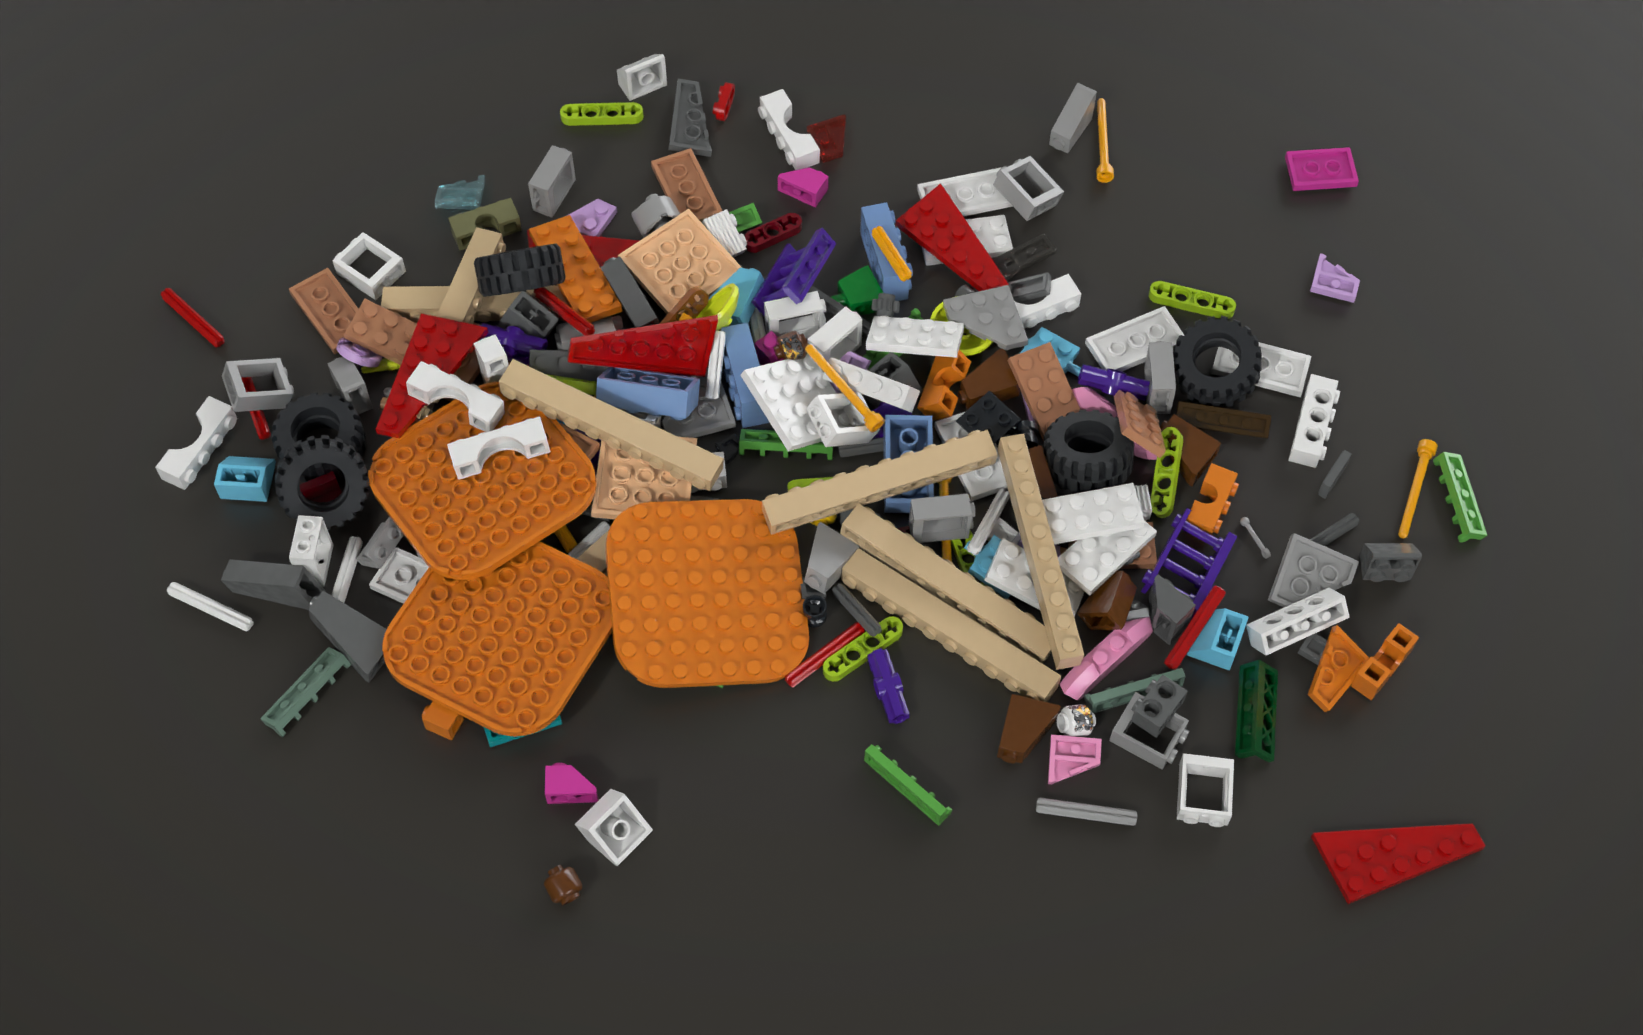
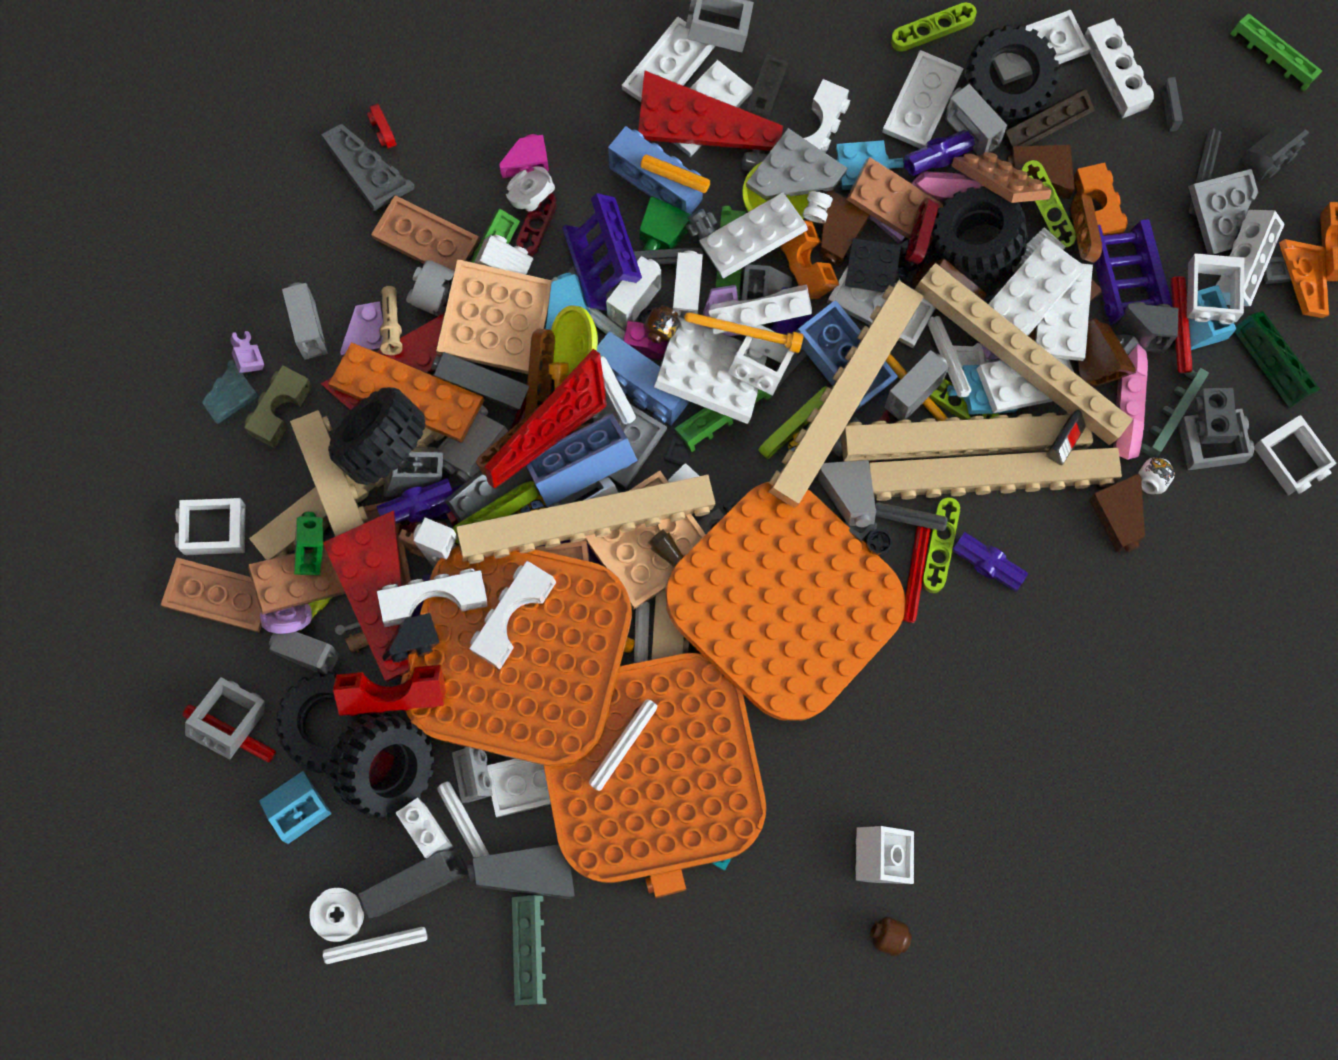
camera: 40 degrees left, 15 degrees up
(182, 465) = (226, 843): white arch -> none
(192, 317) = (97, 699): red axle -> none
(192, 571) = (326, 904): none -> white plate
(348, 422) = (359, 695): none -> red arch
(409, 310) = (308, 534): none -> green torso
(415, 410) = (412, 637): none -> black slope
(494, 593) = (623, 744): none -> white axle
(496, 178) = (246, 356): none -> lavender plate
(564, 311) = (453, 441): red axle -> none
(567, 785) = (817, 851): dark pink slope -> none
(601, 117) = (277, 215): lime beam -> none
(604, 225) = (390, 329): none -> tan pin
(643, 76) = (286, 154): white slope -> none
(649, 485) = (665, 547): none -> dark brown cone
(787, 204) = (540, 187): none -> white plate
(798, 148) = (490, 125): white arch -> none
(829, 137) = (504, 95): clear red wing -> none
(906, 785) = (1073, 633): bright green hinge -> none
(981, 350) = (817, 207): none -> white wheel
(1024, 636) = (1067, 438): none -> slope
(1030, 287) = (801, 114): dark grey tile -> none
(1045, 418) = (921, 231): none -> dark red beam
(1072, 756) = (1175, 507): bright pink wing -> none
(1086, 811) = (1222, 544): light grey axle -> none
(1178, 505) = (1086, 227): none -> dark orange beam
(1251, 594) = (1219, 266): none -> white window
(1265, 552) = (1135, 199): light grey hinge -> none
(1426, 450) = (1220, 29): light orange piece -> none

